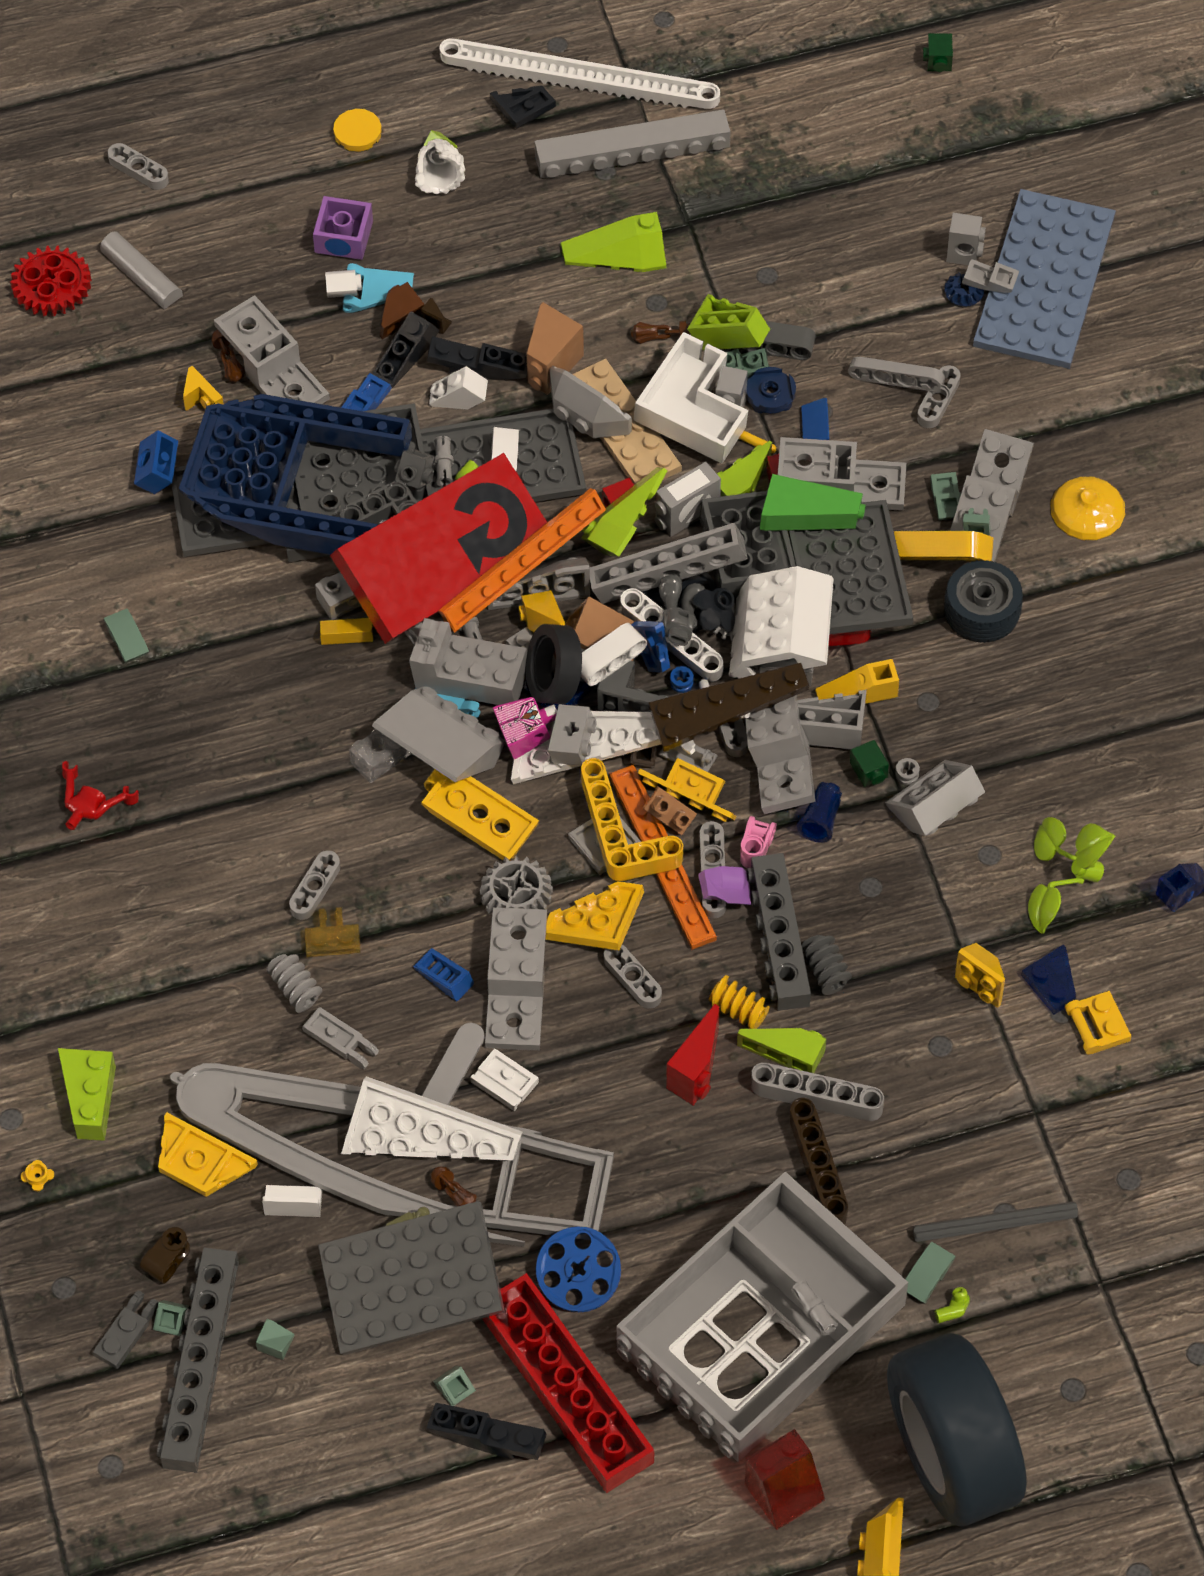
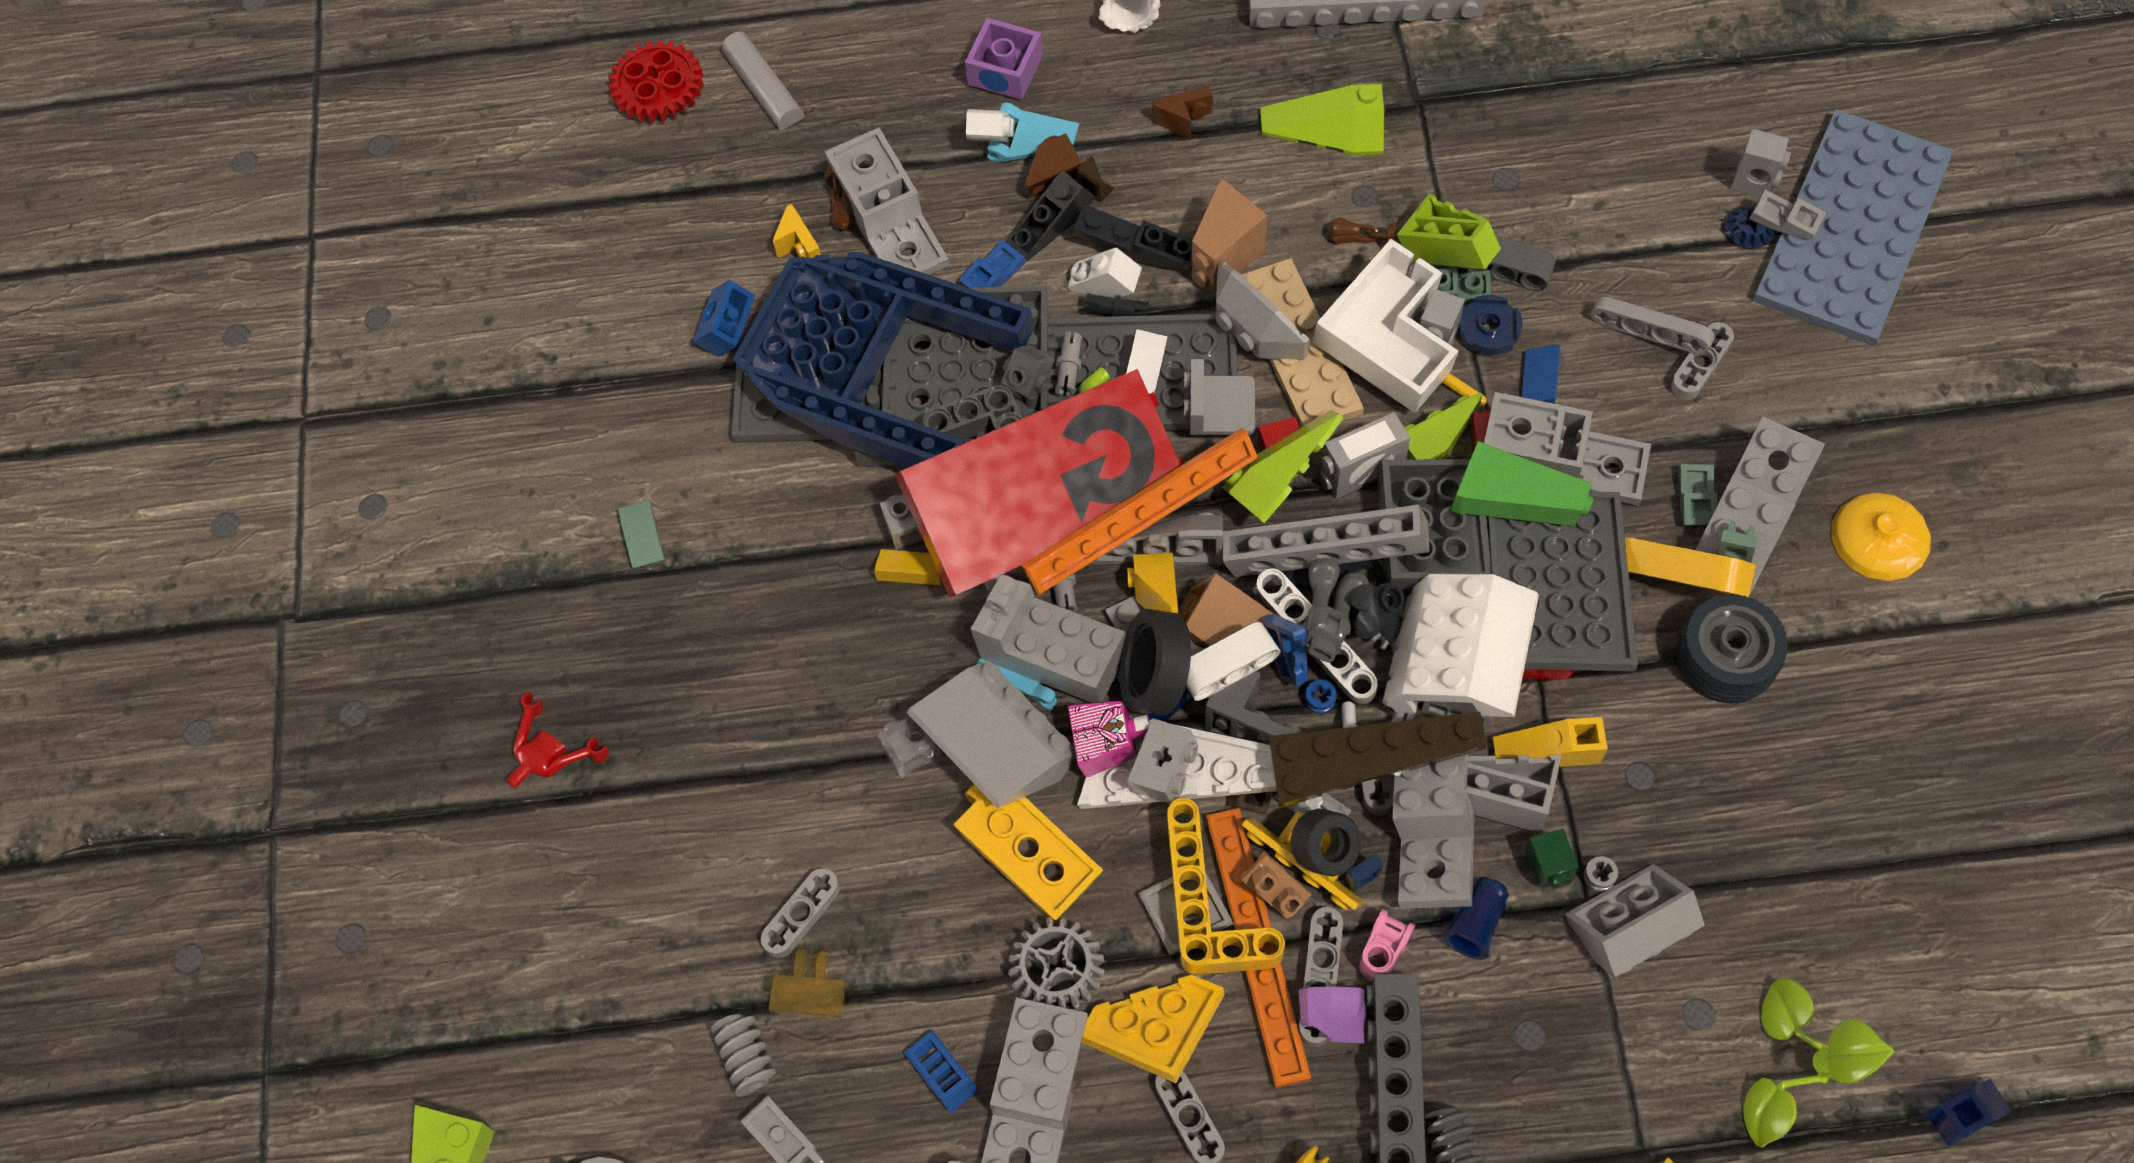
camera: 15 degrees right, 5 degrees up
(470, 413) = (1115, 306): none -> black pin
(494, 253) = (1178, 110): none -> reddish brown slope
(567, 474) = (1218, 402): none -> light grey bracket
(715, 771) = (1343, 846): none -> black tyre
(733, 794) = (1363, 873): none -> dark blue tile

